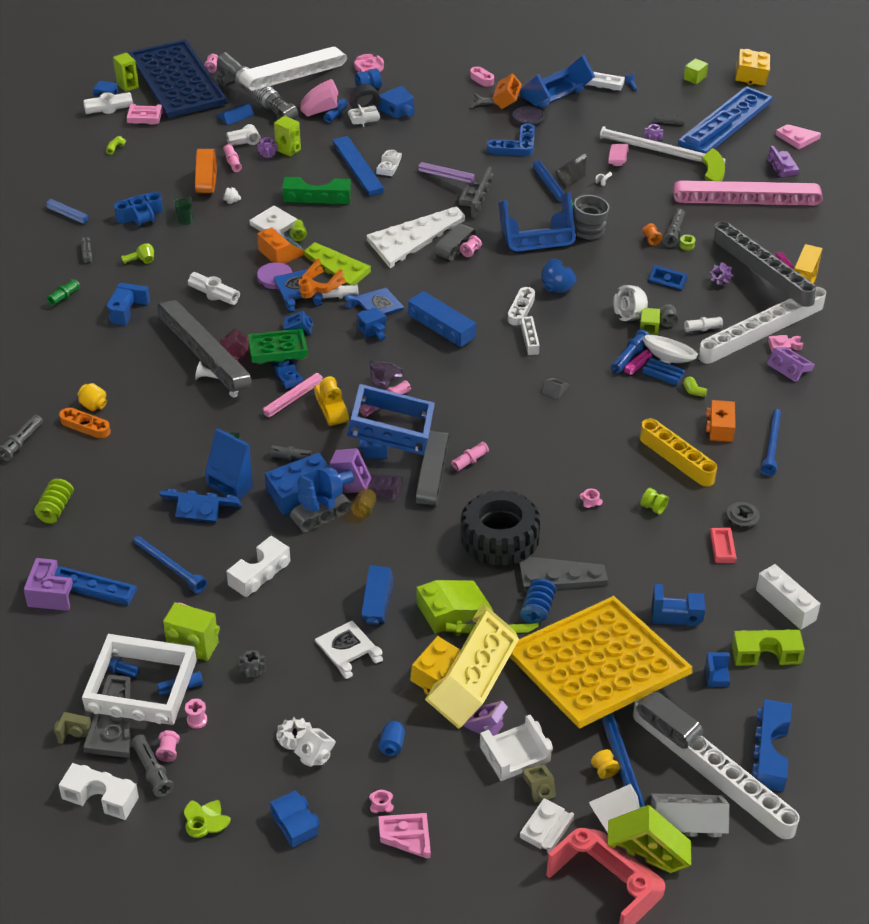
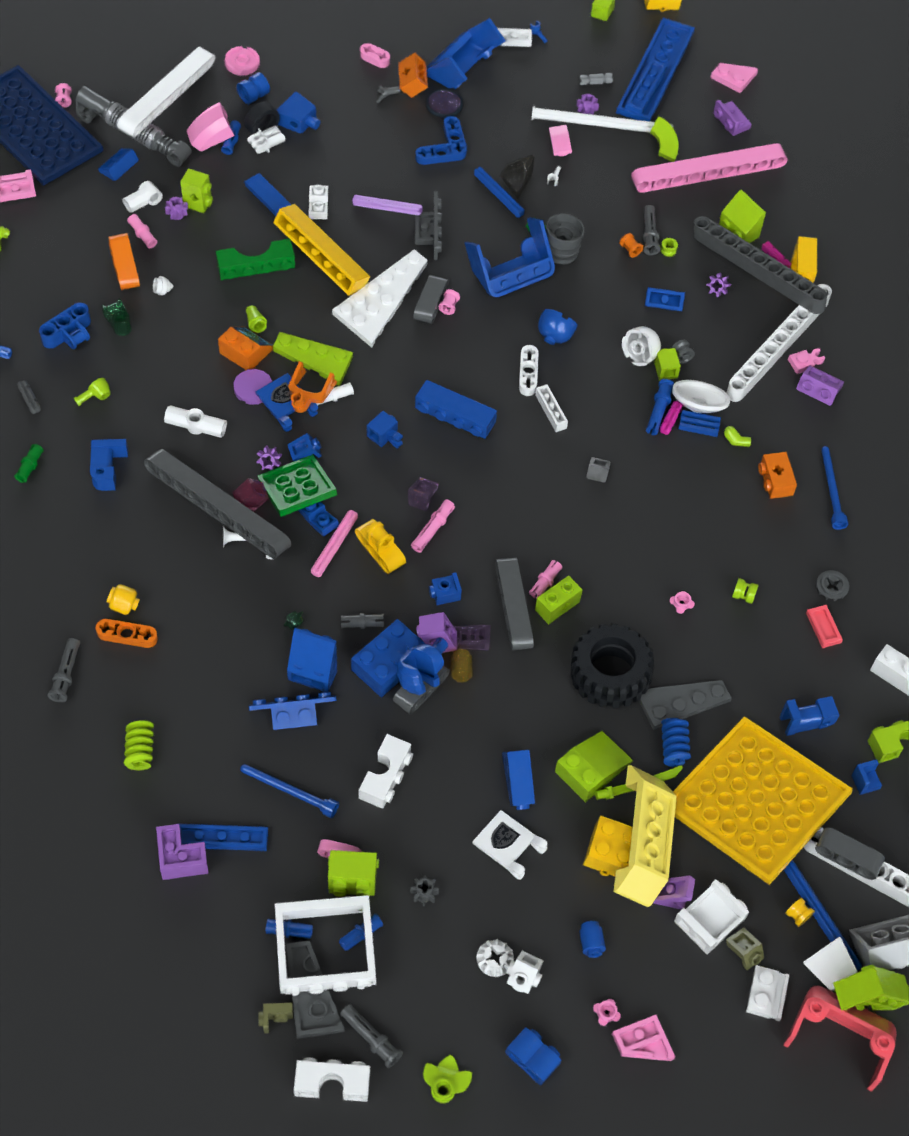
camera: 20 degrees left, 15 degrees up
(166, 750) = (378, 1009): bright pink bush -> none
(196, 717) = (396, 958): bright pink bush -> none
(263, 323) = (264, 455): none -> medium lavender gear
(273, 218) = (222, 311): white plate -> none
(374, 190) = (321, 249): none -> yellow brick
(380, 298) = (375, 398): blue flag -> none
(388, 434) = (455, 581): blue window -> none
(474, 472) = (558, 599): none -> lime brick
(678, 452) = (758, 525): yellow beam -> none
(703, 324) = (720, 354): white pin -> none
(763, 228) = (743, 217): none -> lime slope

